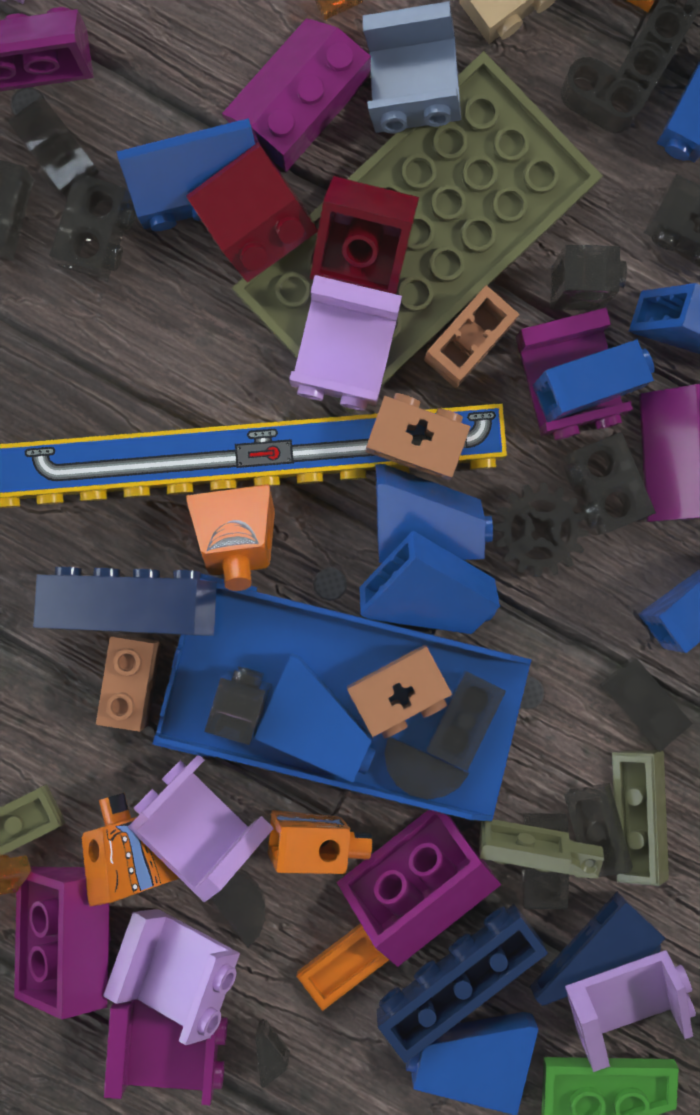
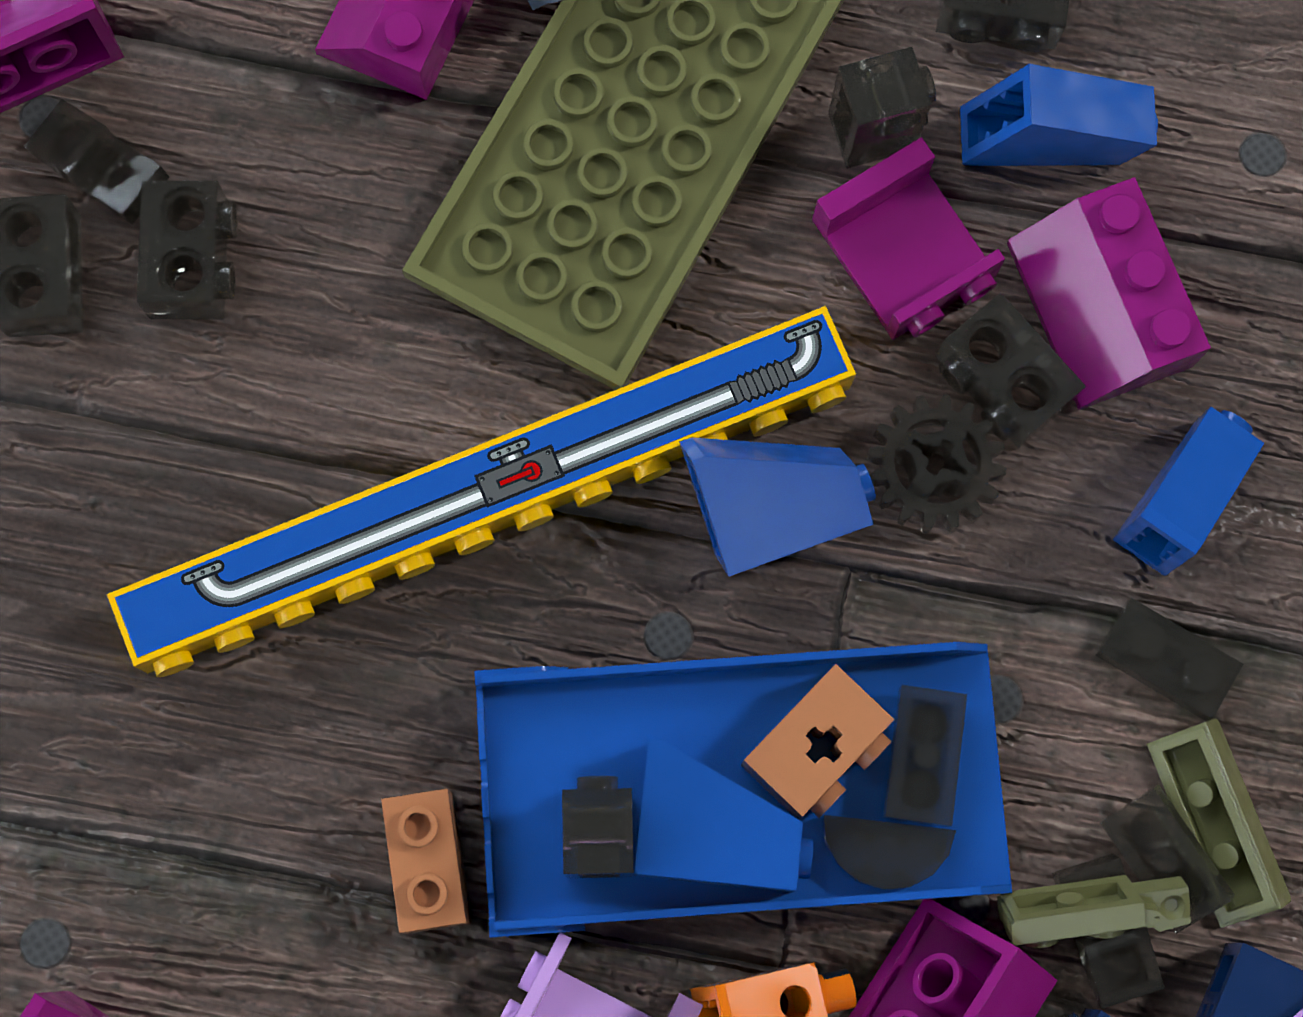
camera: 20 degrees left, 10 degrees down
(126, 603) = (388, 744): dark blue brick -> none
(171, 168) = (306, 135): blue slope -> none
(234, 532) = (510, 599): orange torso -> none
(252, 212) = (402, 158): dark red slope -> none
(345, 343) = (584, 292): lavender panel -> none
(363, 234) = (563, 146): dark red slope -> none
(429, 589) = (810, 590): blue slope -> none
(432, 457) = (693, 392): nougat brick -> none
(471, 336) = (752, 233): nougat brick -> none
(593, 380) = (936, 237): blue slope -> none

